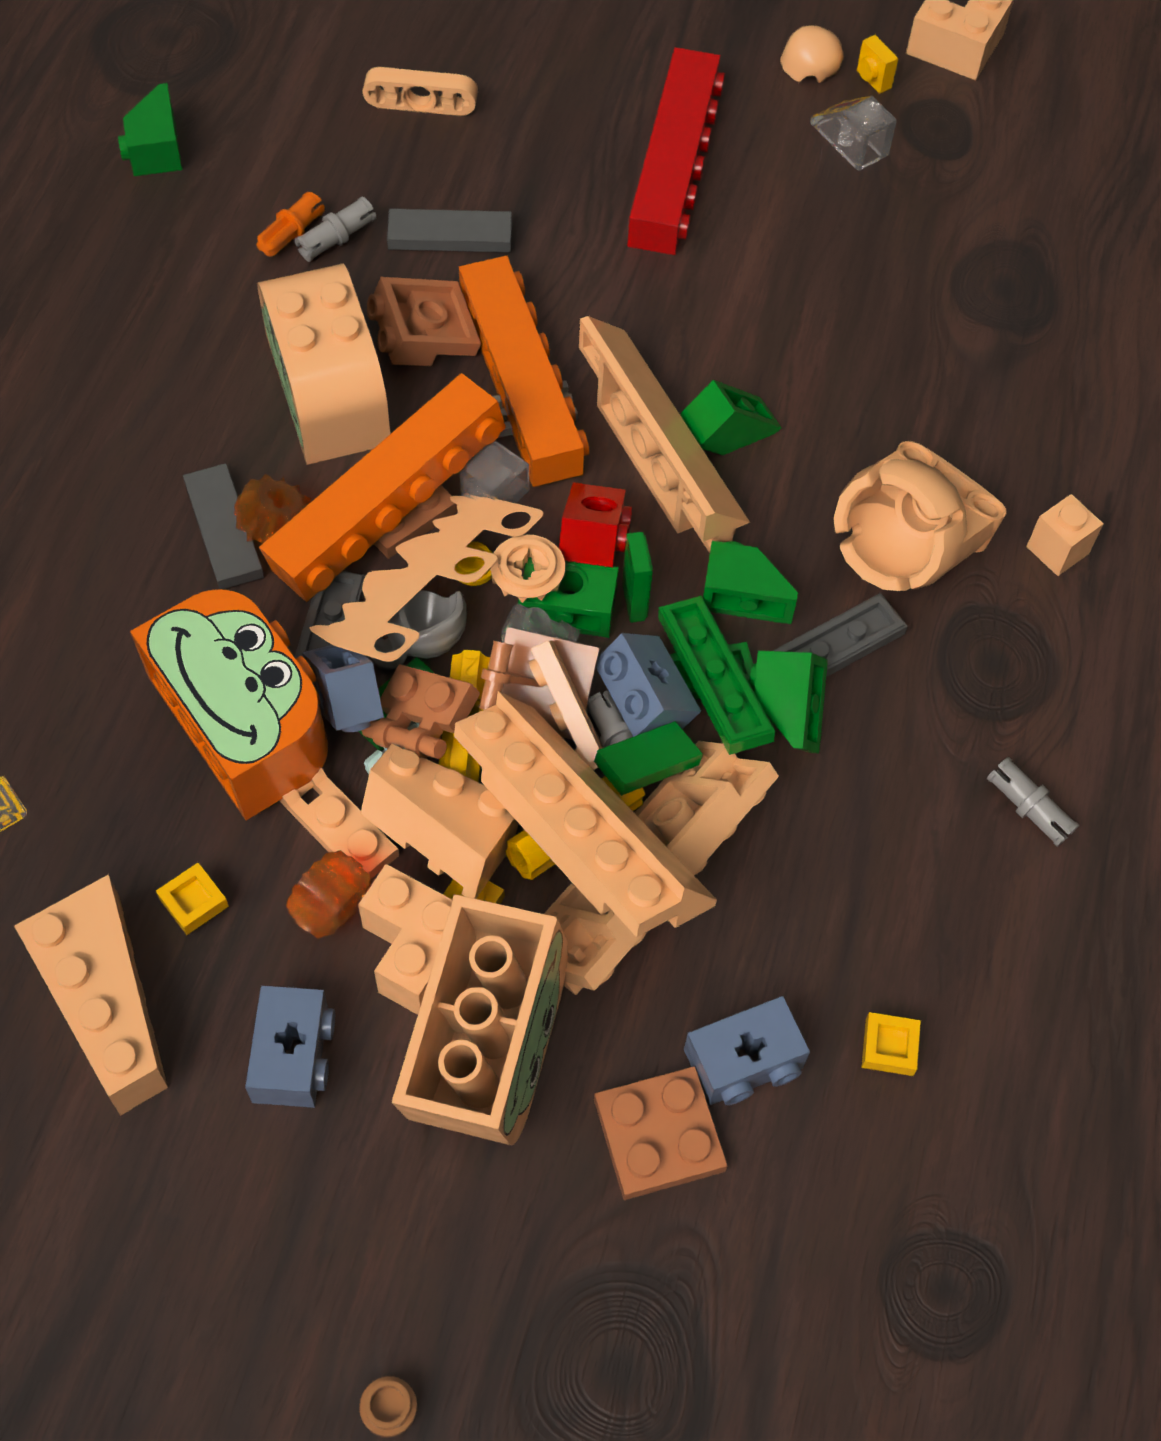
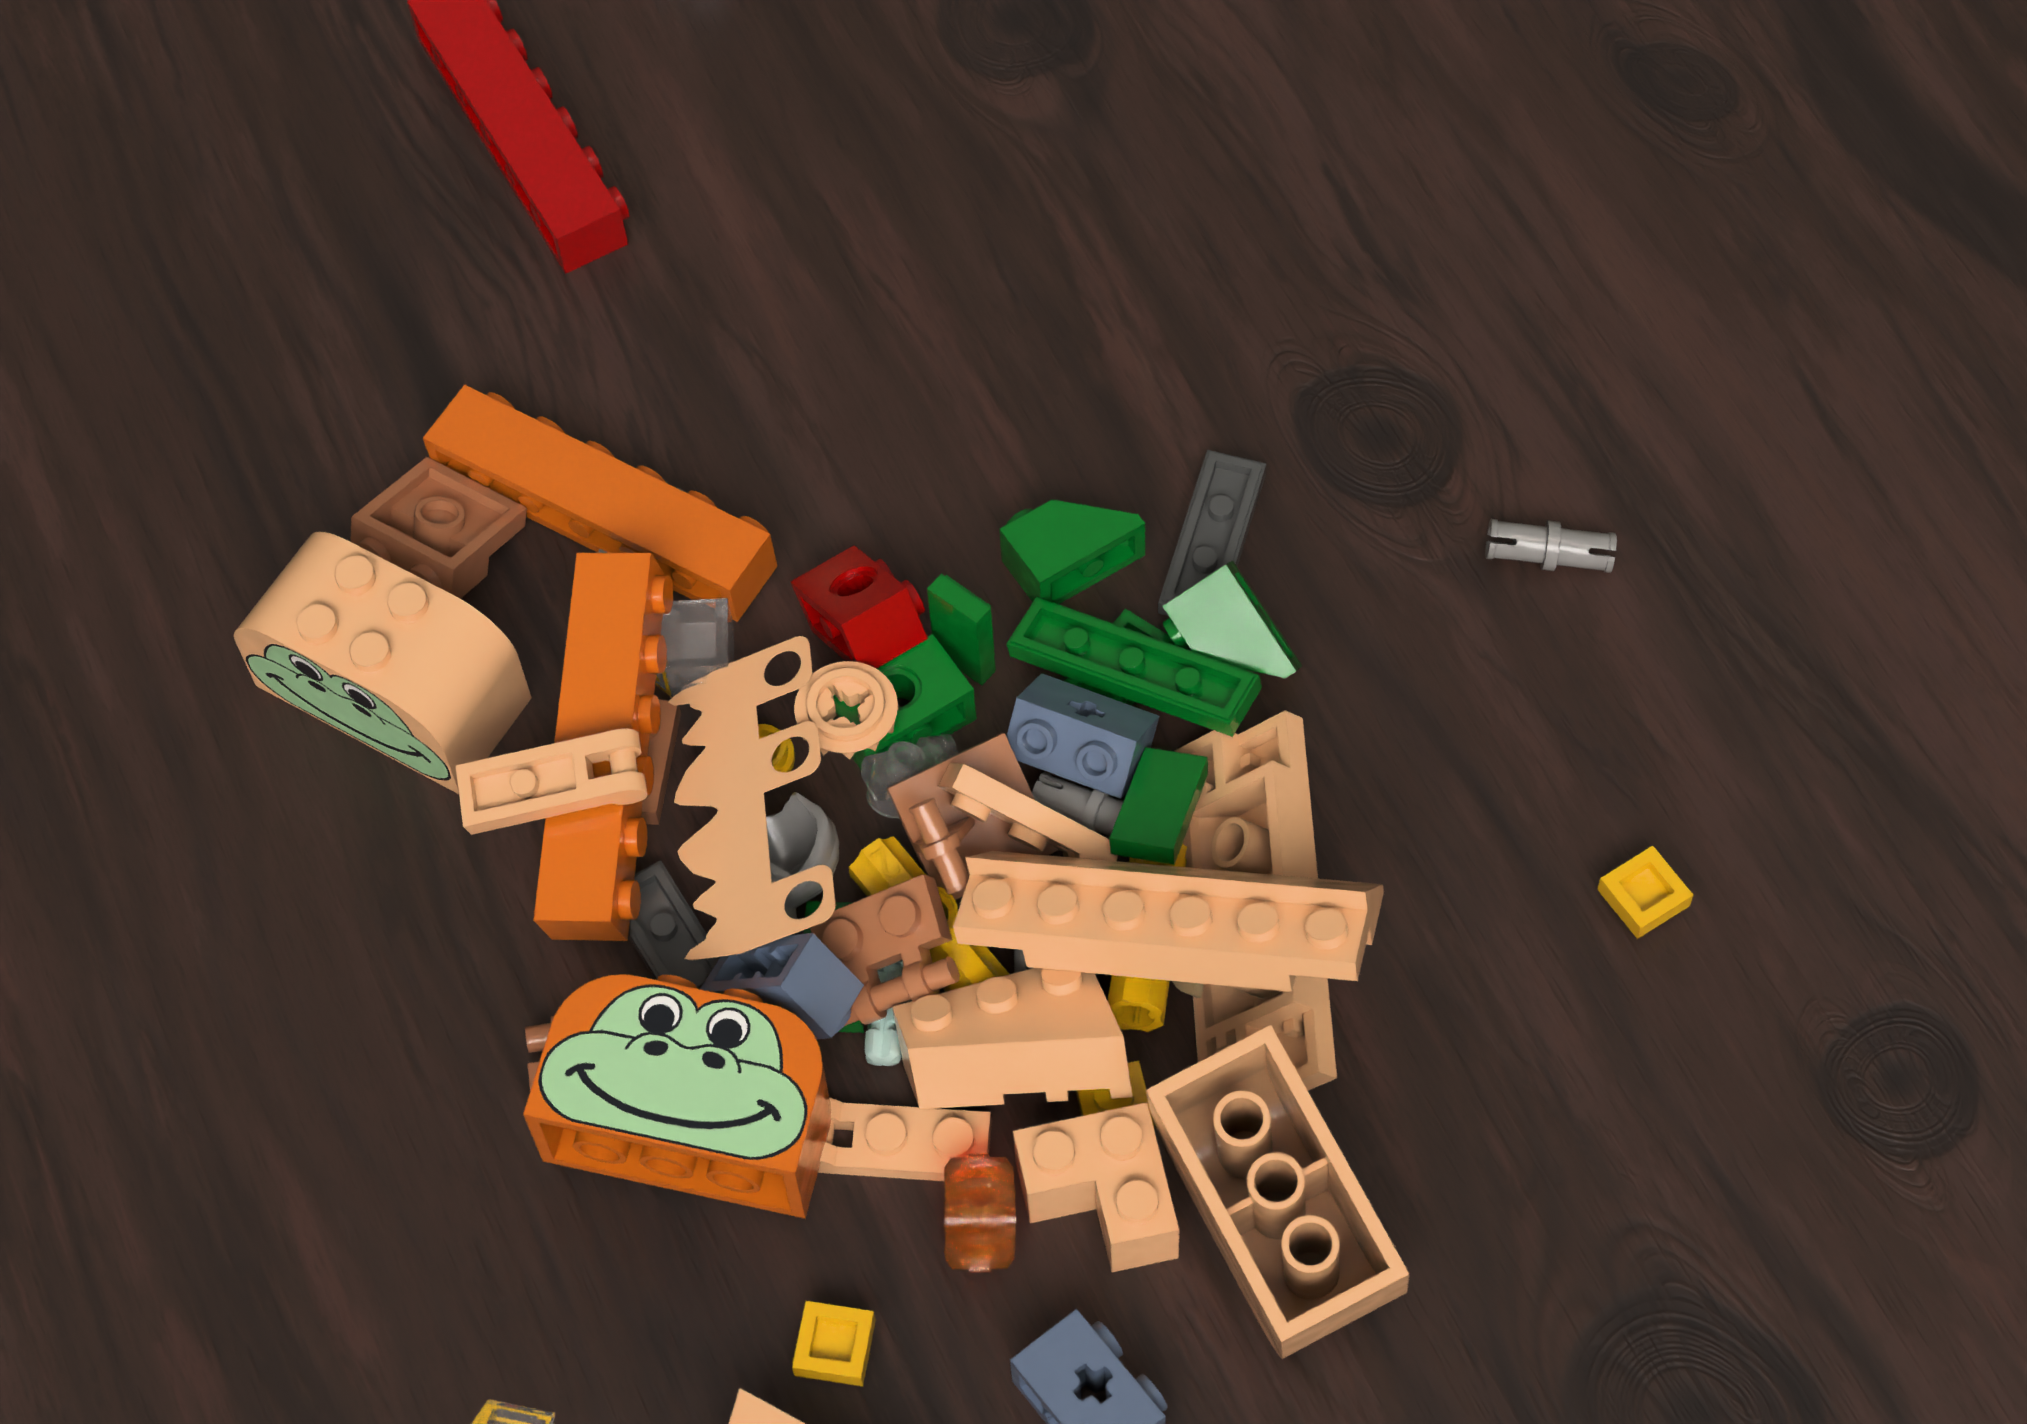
camera: 35 degrees left, 0 degrees up
(227, 547) = (443, 935): dark grey tile -> none
(267, 507) = (492, 874): clear orange gear -> none
(289, 224) = (159, 536): orange axle -> none
(330, 478) = (550, 781): none -> light nougat plate
(335, 229) = (219, 503): light grey pin -> none
(394, 78) = (115, 283): light nougat beam -> none
(449, 230) = (349, 405): dark grey tile -> none
(658, 437) = (830, 464): light nougat slope -> none
(659, 1133) = (1516, 1164): nougat plate -> none
(728, 418) = (876, 388): green slope -> none
(759, 1030) = (1531, 979): sand blue brick -> none
(913, 519) = (1177, 345): light nougat piece -> none
(1064, 534) = (1331, 245): light nougat brick -> none

